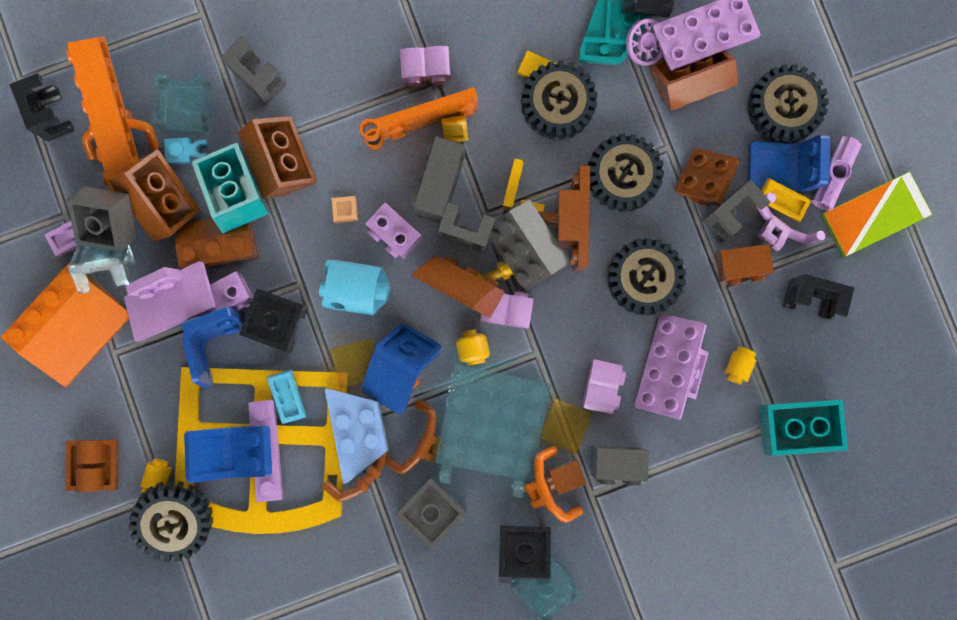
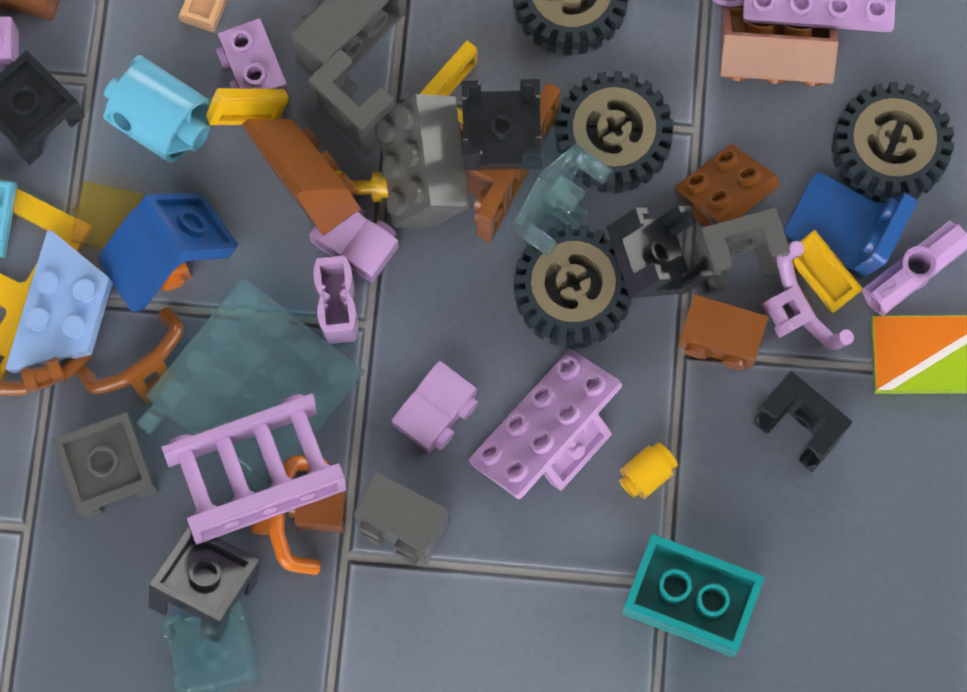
camera: 25 degrees right, 10 degrees down
(405, 260) = (239, 105): none -> yellow tile
(472, 348) = (280, 270): yellow head -> none
(519, 357) = (336, 294): none -> lavender brick
(546, 482) = (247, 505): none -> lavender fence
(566, 425) = (358, 441): clear yellow piece -> none
(570, 207) = (501, 127): none -> black panel
(617, 230) = (557, 196): none -> clear light blue panel
(685, 239) = (652, 253): none -> black panel

